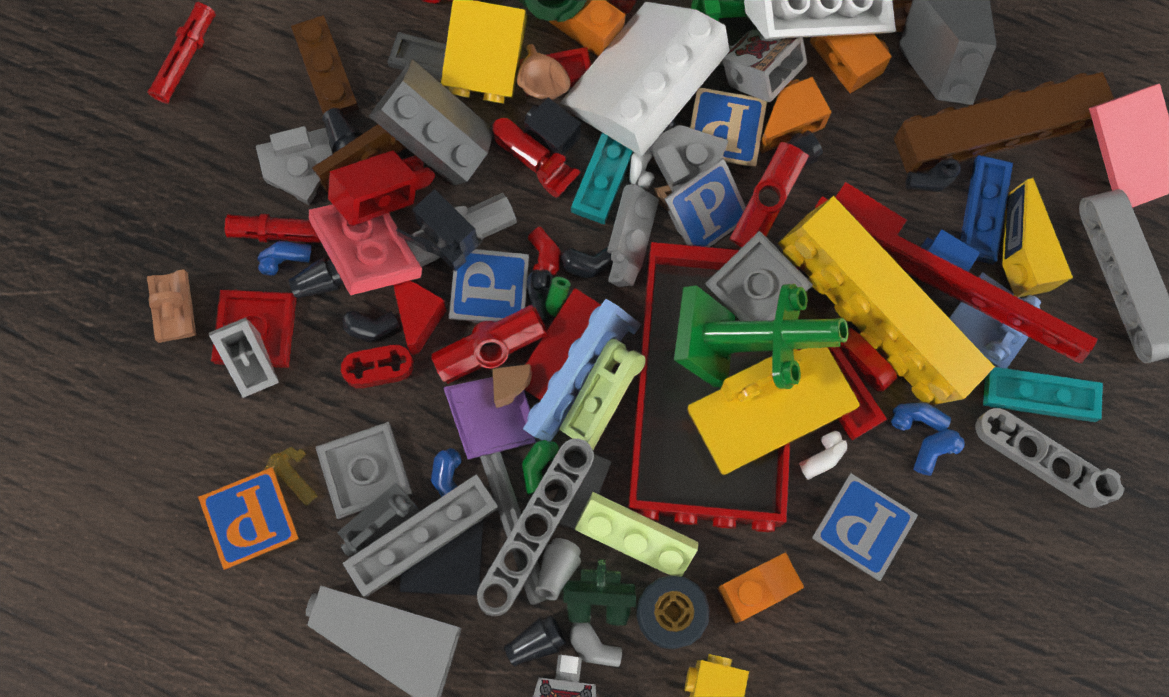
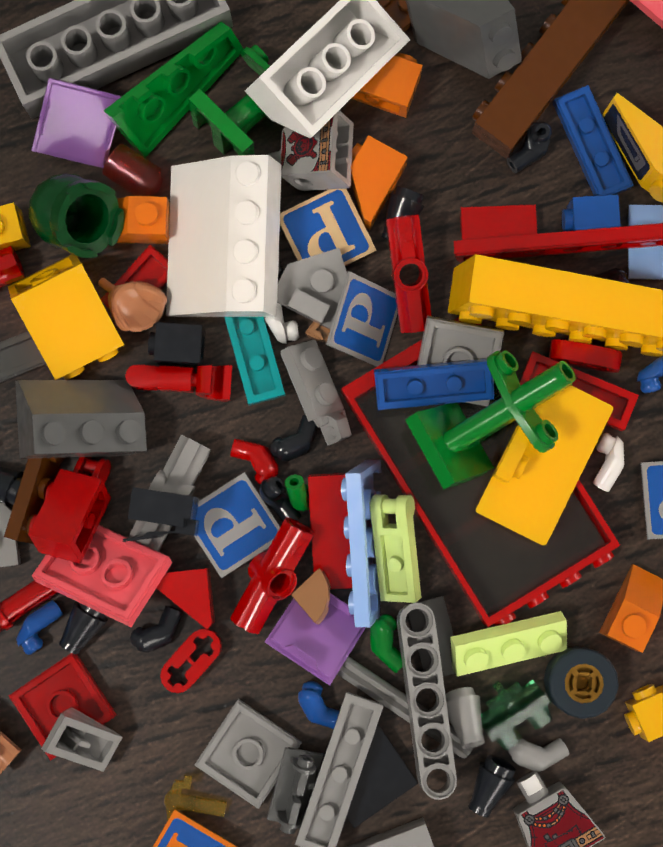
camera: 30 degrees left, 10 degrees up
(725, 284) = (433, 384): none -> blue tile

